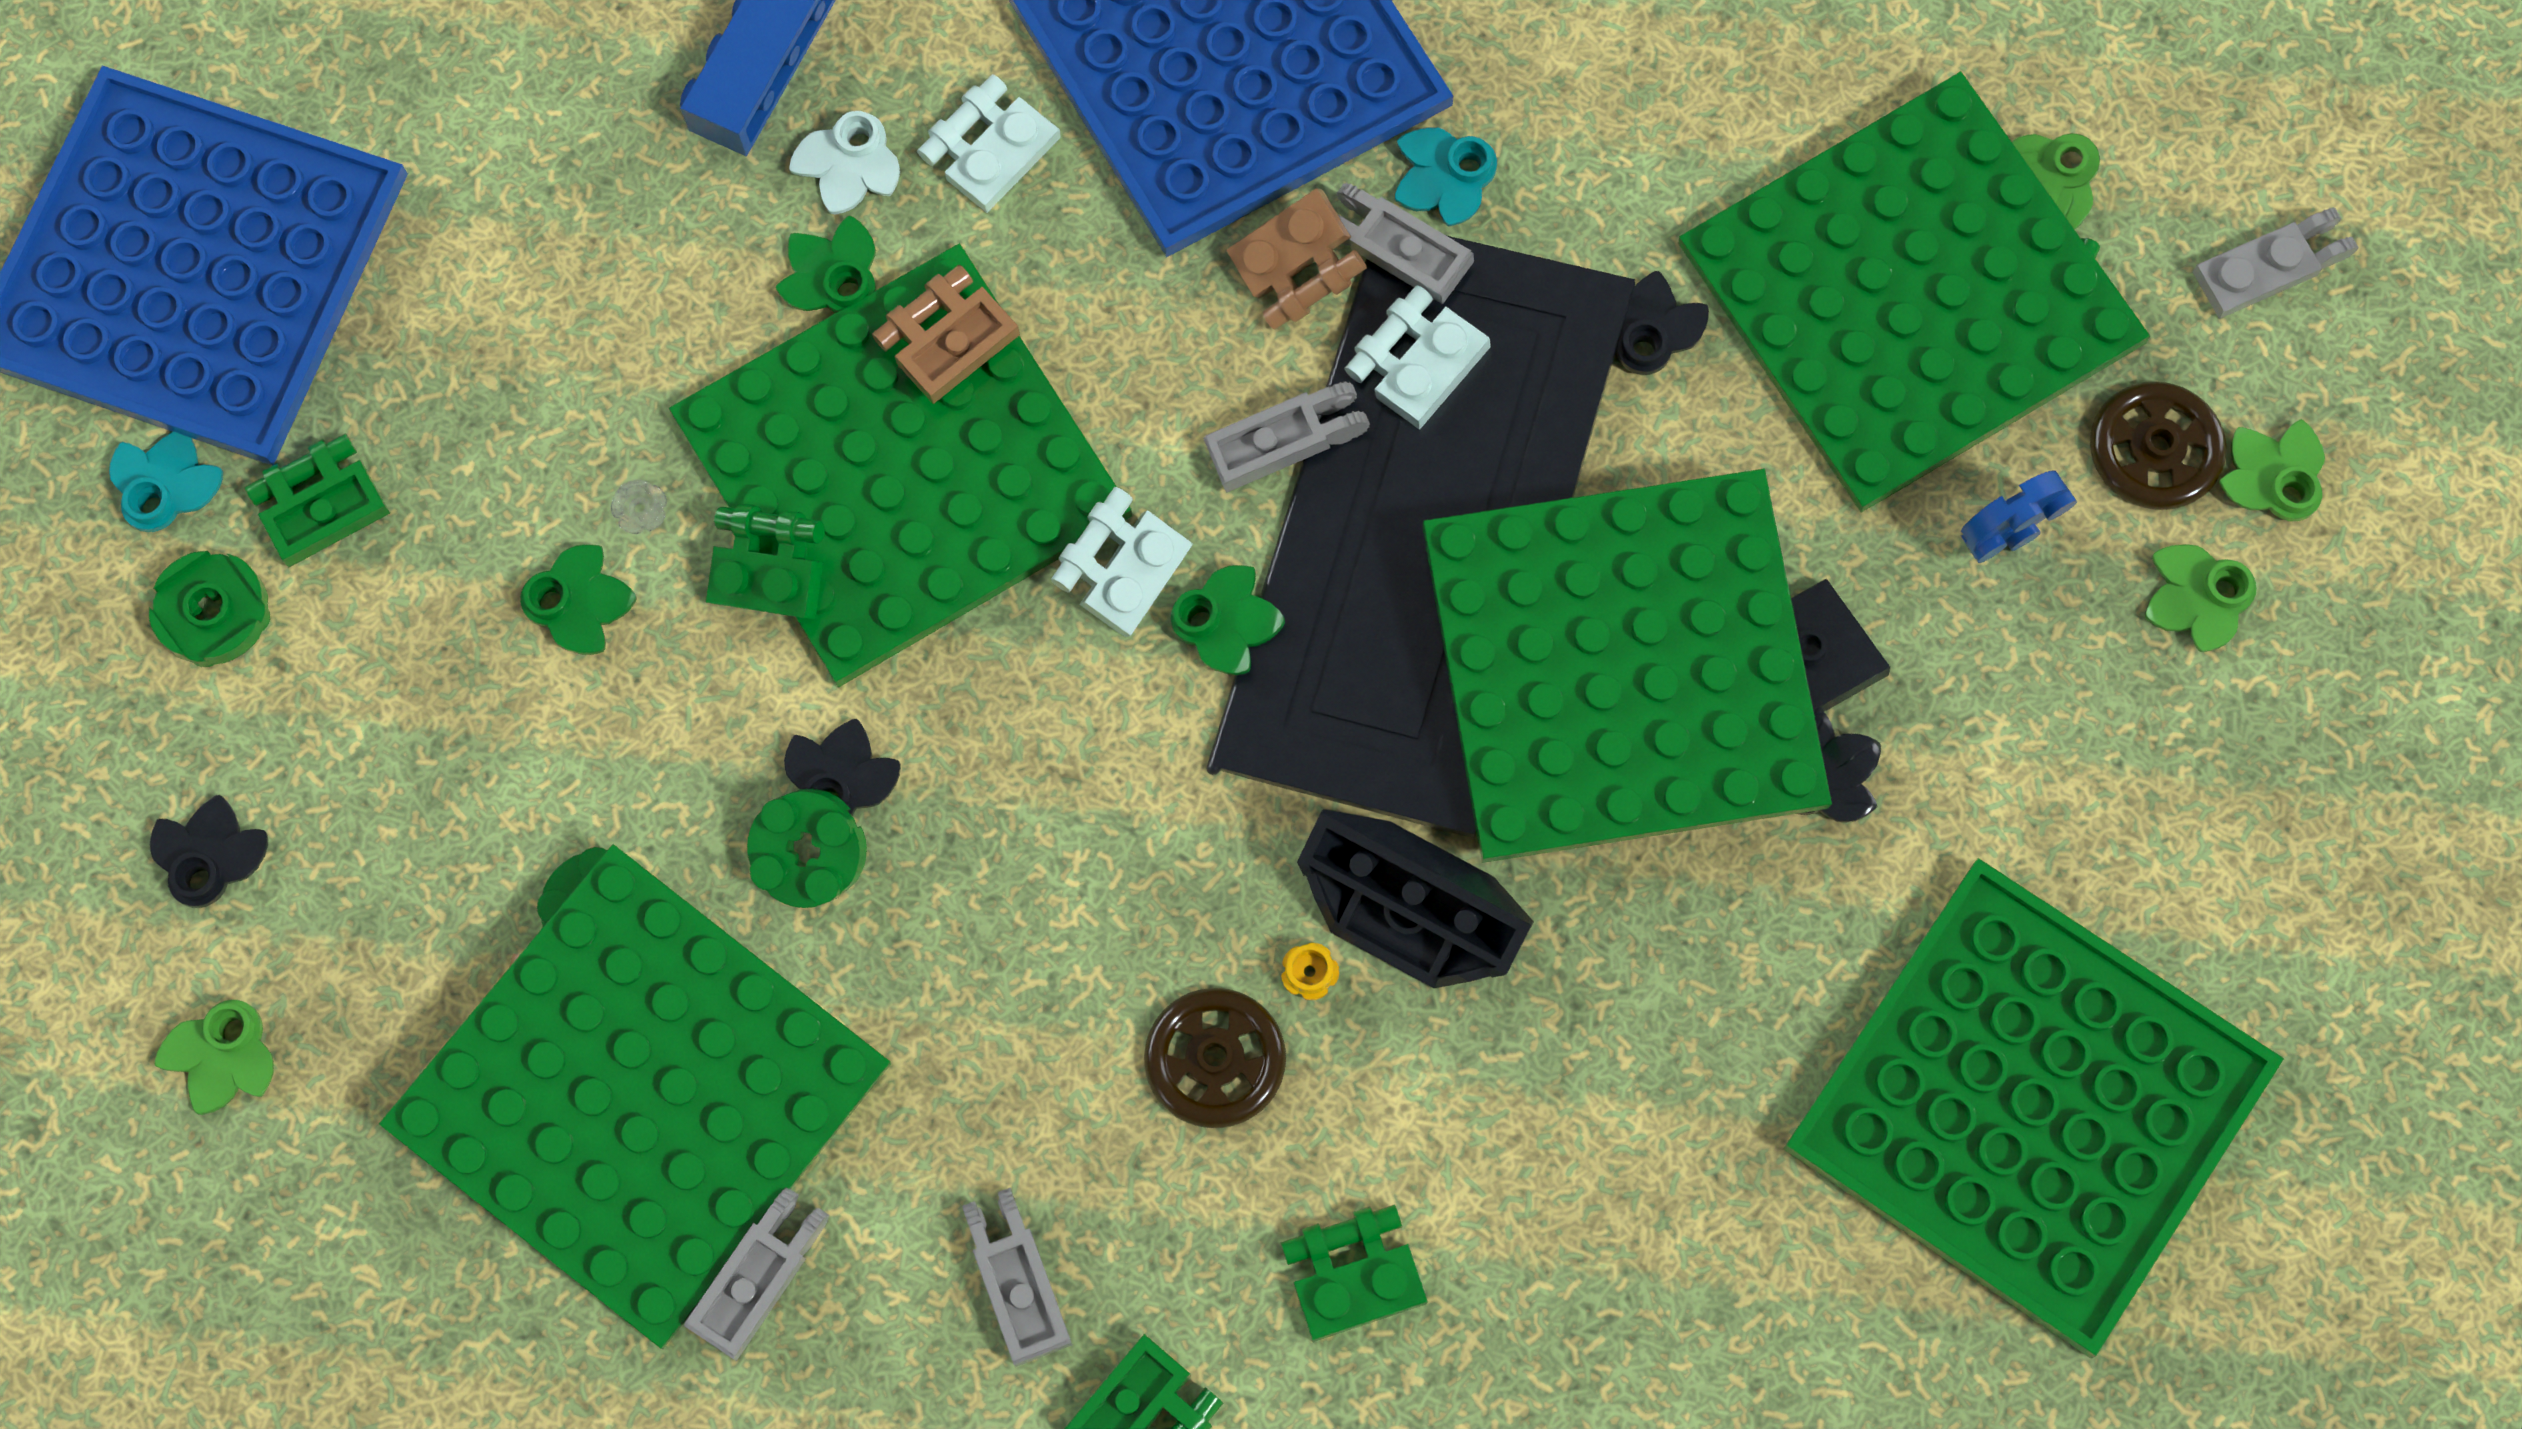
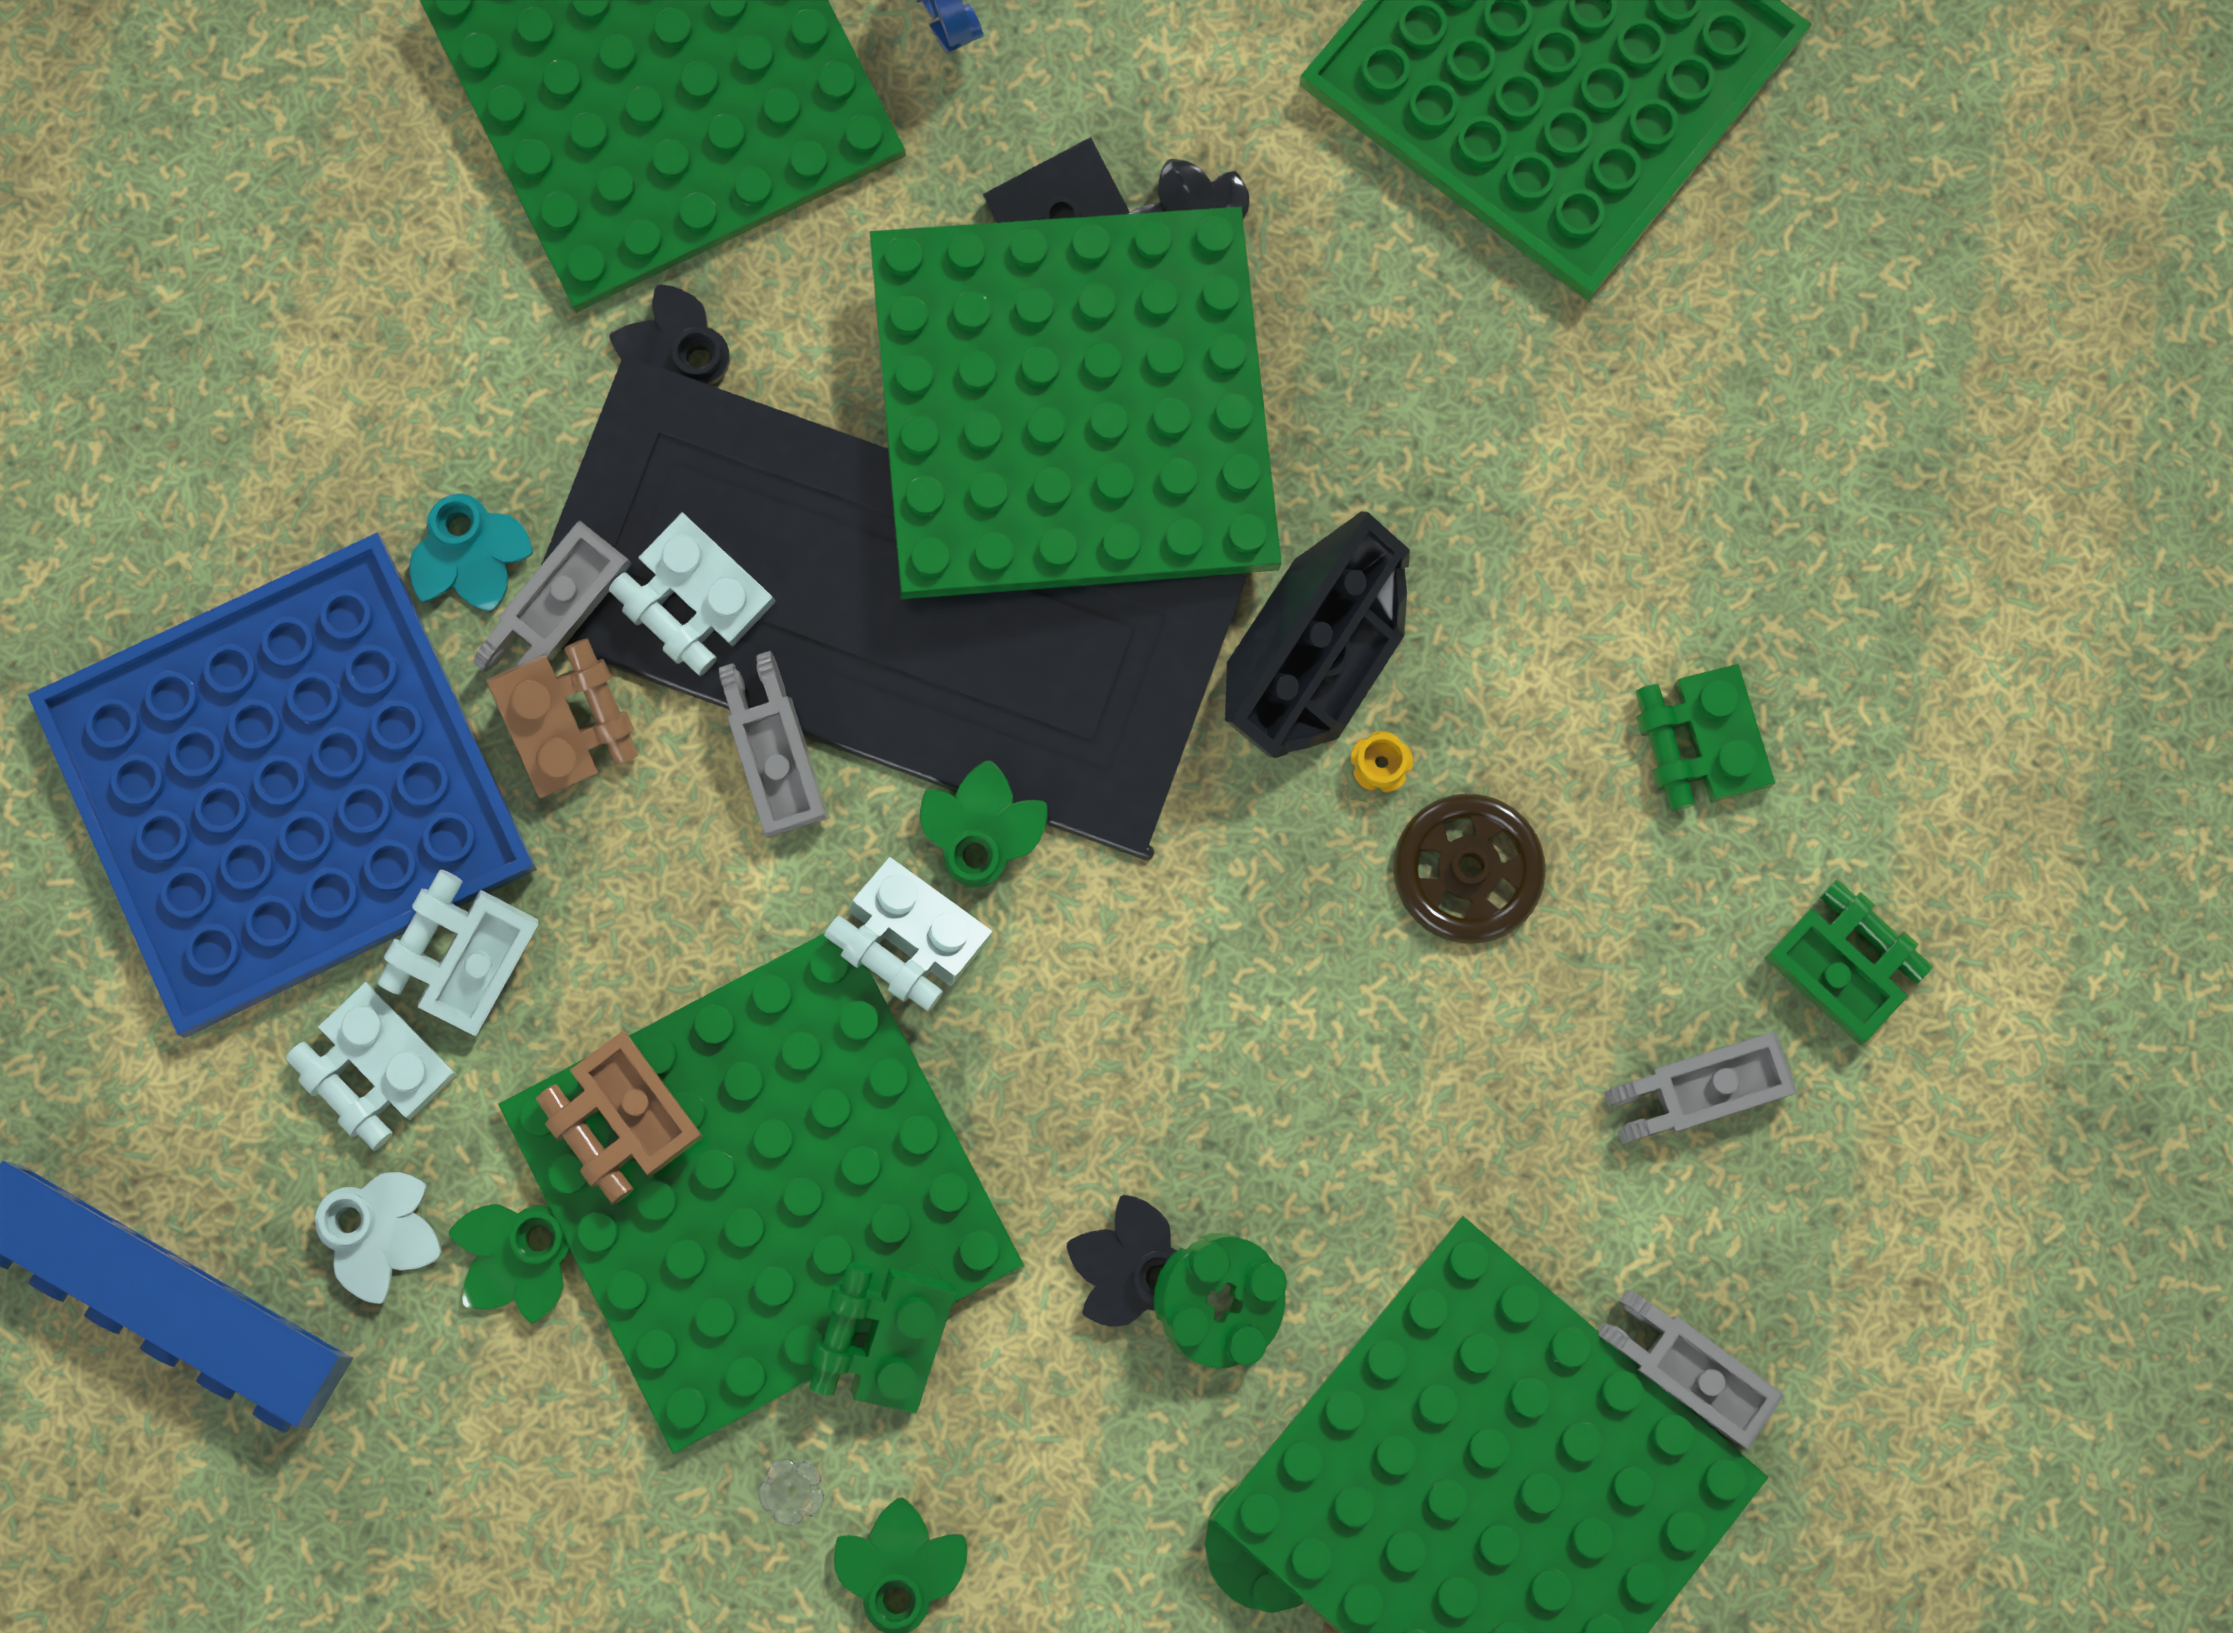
camera: 90 degrees left, 5 degrees up
(1078, 211) = (476, 962): none -> light aqua plate

